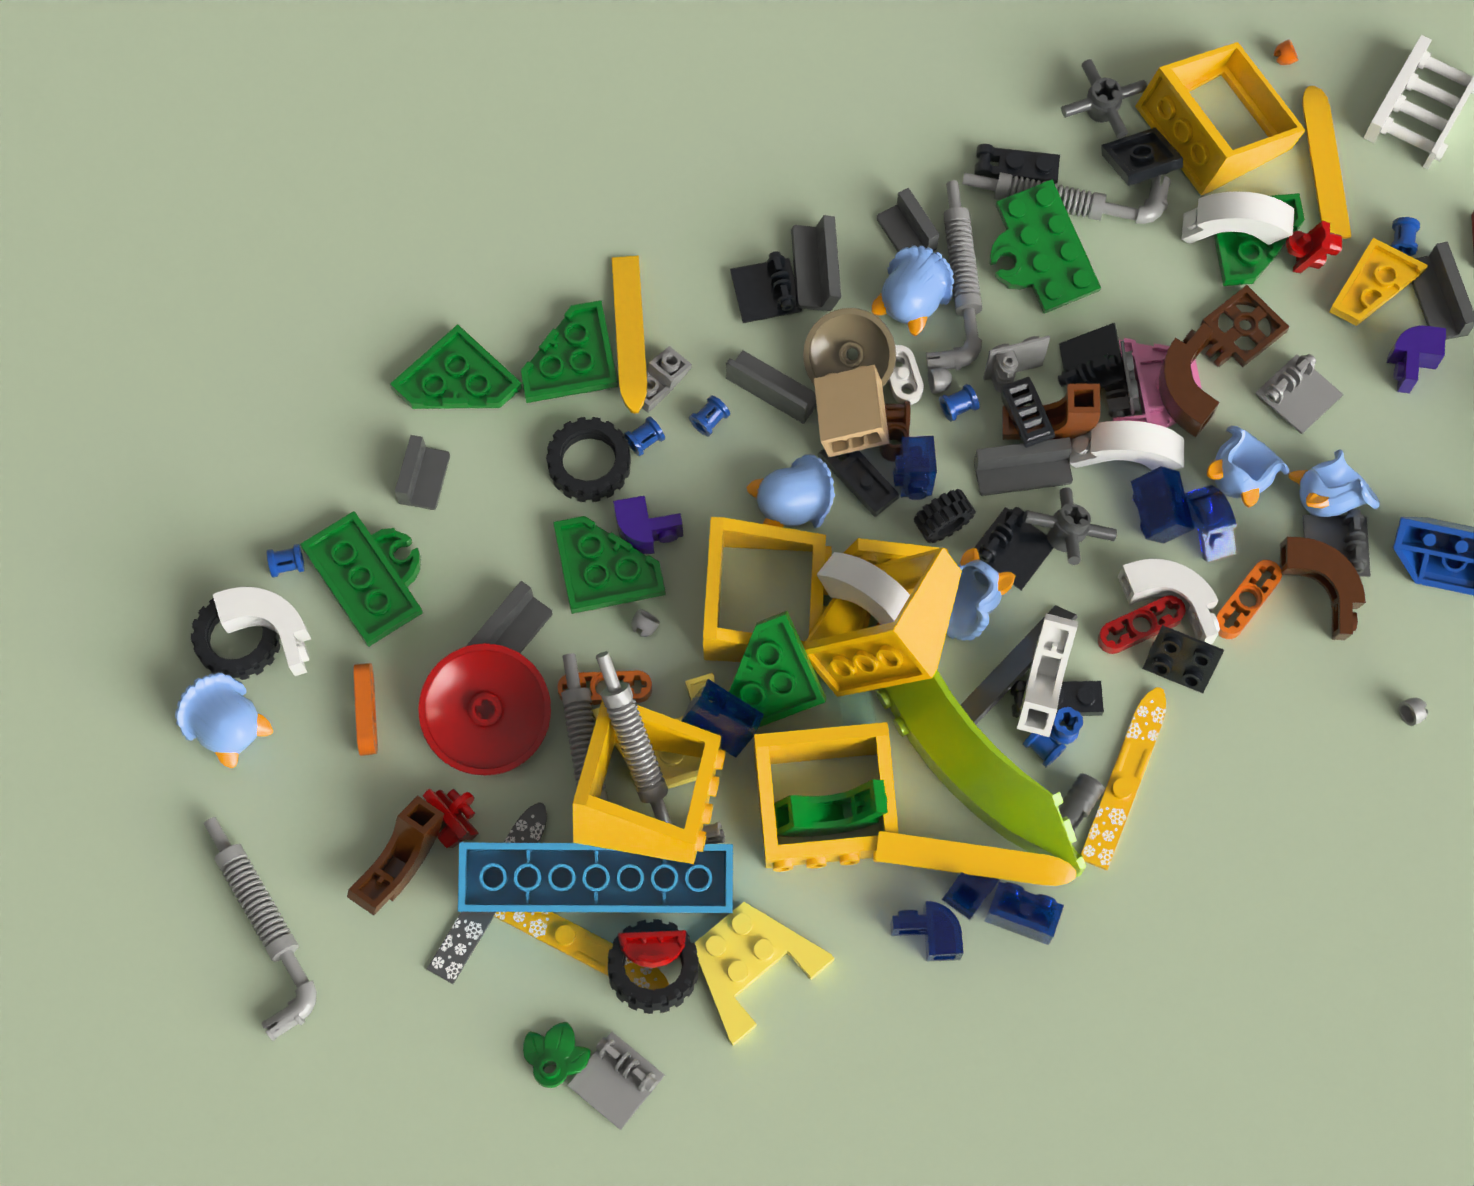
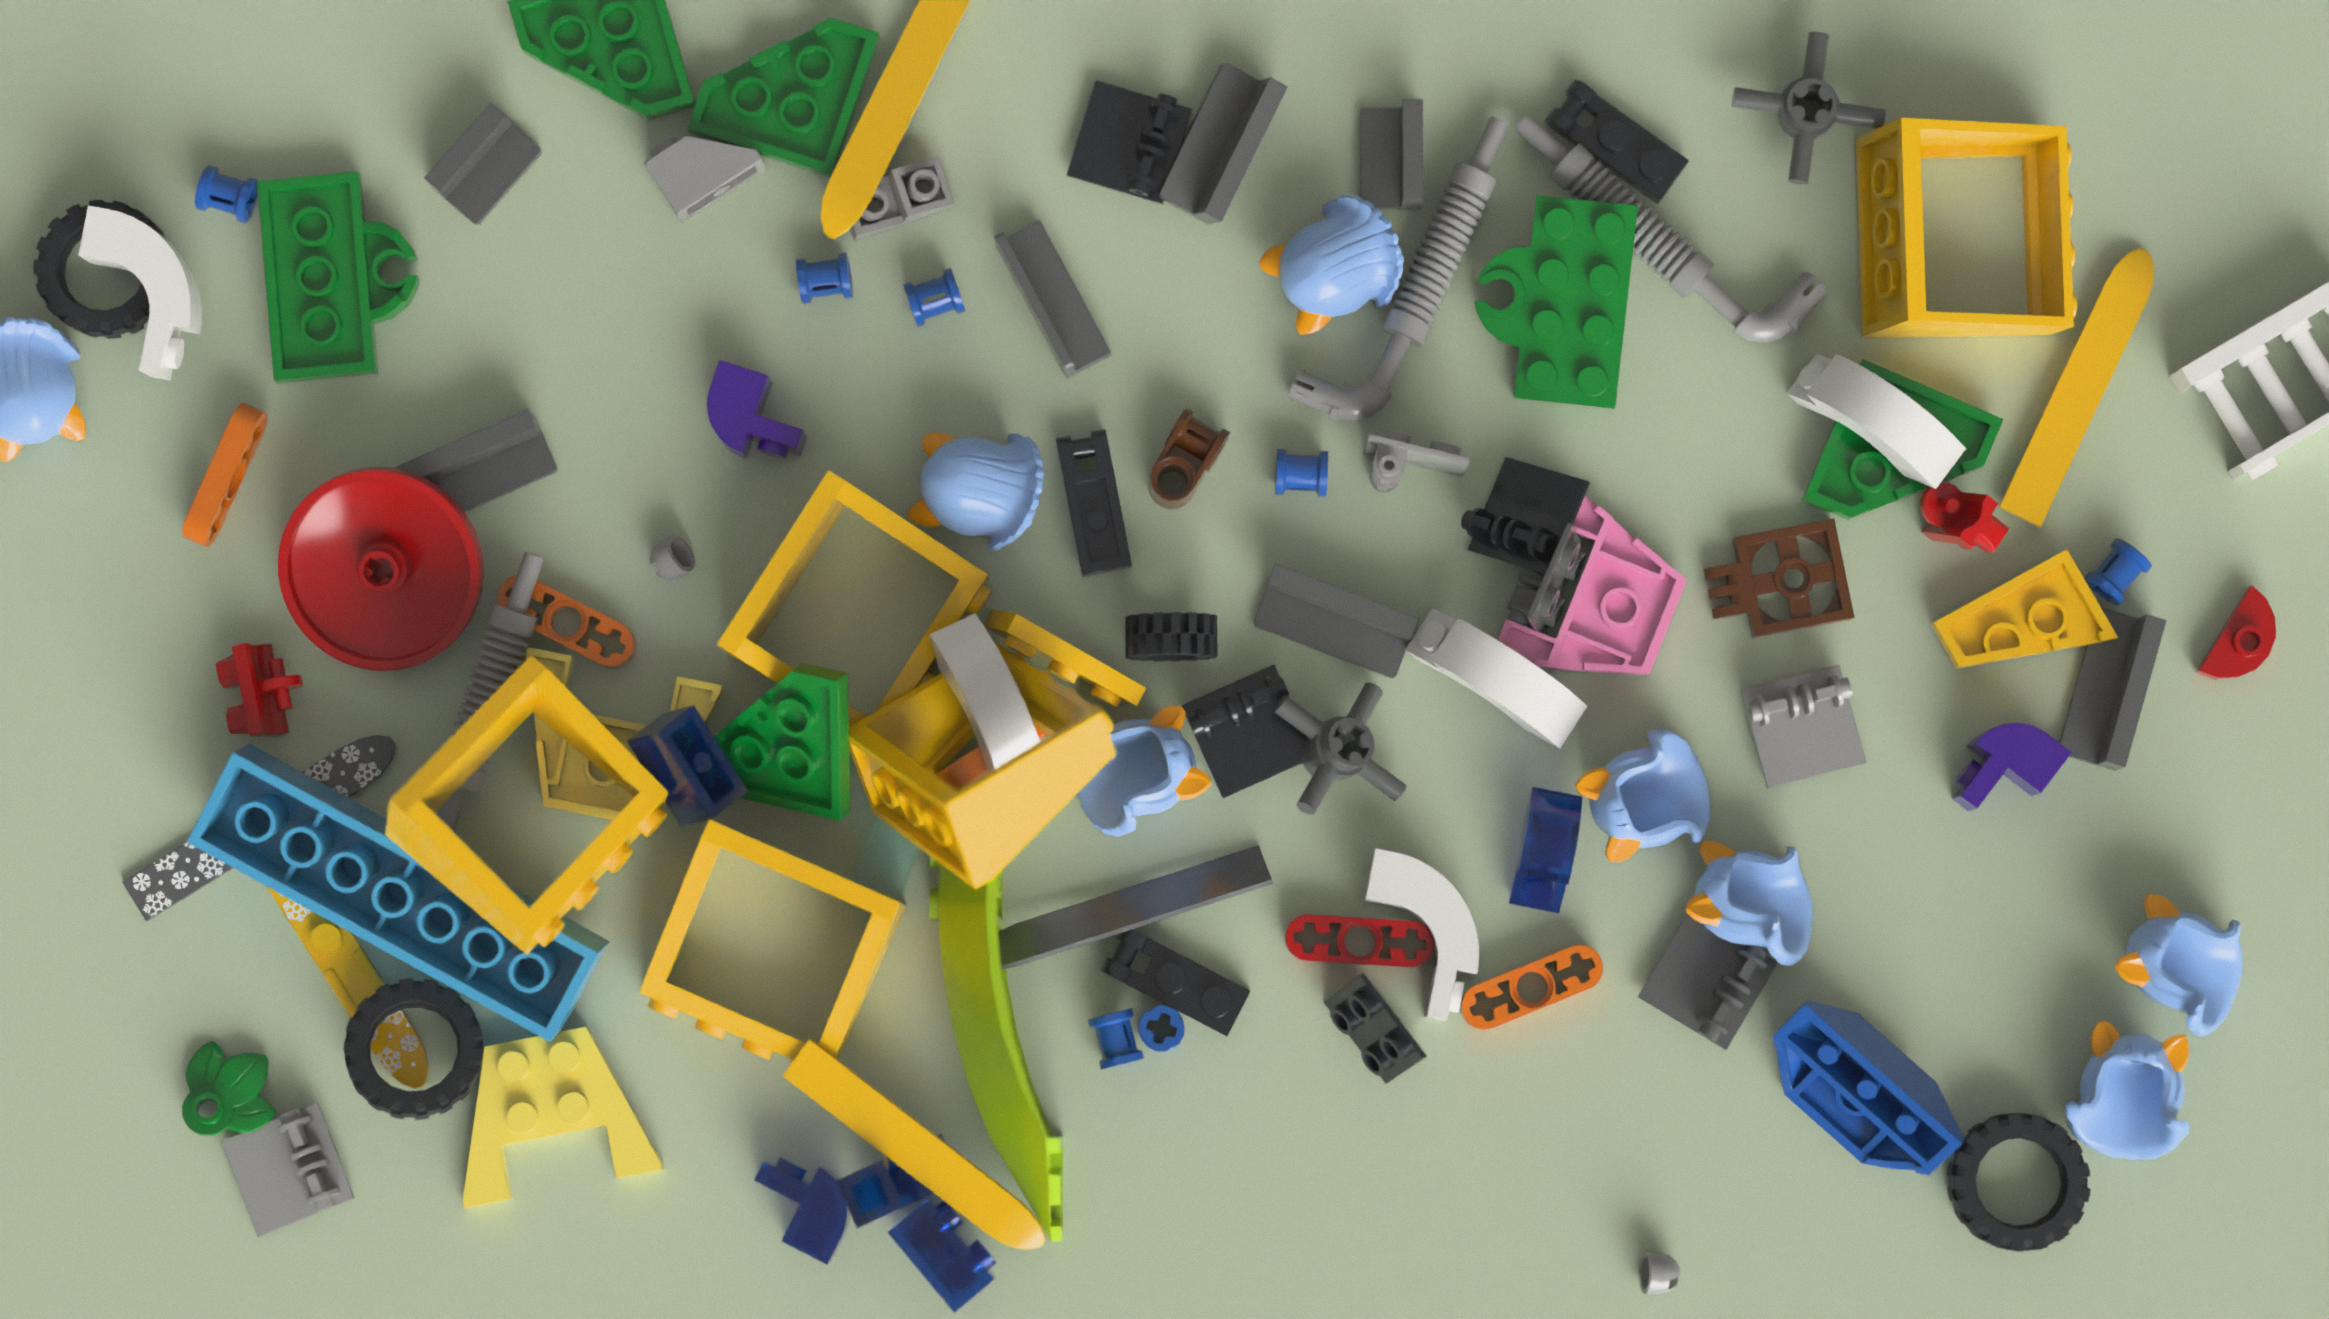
camera: 30 degrees right, 15 degrees up
(402, 857) = (164, 714): reddish brown arch -> none
(544, 416) = (700, 172): none -> light grey slope
(582, 430) = (709, 220): black tyre -> none
(603, 568) = (658, 445): green plate -> none
(637, 747) = (539, 766): light grey piece -> none
(652, 948) = (421, 1030): red plate -> none
(831, 813) = (763, 971): green arch -> none
(844, 329) = (1155, 323): dark tan dish -> none
(851, 410) = (1129, 407): tan brick -> none
(906, 377) = (1247, 386): white plate -> none
(915, 467) = (1171, 544): clear blue brick -> none
(939, 379) = (1296, 421): light grey hinge -> none
(1019, 394) = (1387, 508): black slope -> none
(1046, 675) = (1161, 955): white arch -> none
(1069, 417) = (1426, 584): dark orange arch -> none
(1081, 799) = (1111, 1144): dark grey hinge -> none
(1125, 780) = (1202, 1144): yellow piece -> none
(1142, 156) = (1805, 233): black plate -> none
(1162, 505) = (1487, 790): clear blue brick -> none
(1179, 393) = (1616, 638): reddish brown arch -> none
(1286, 53) = (2141, 178): orange hinge -> none
(1333, 571) = (1654, 989): reddish brown arch -> none

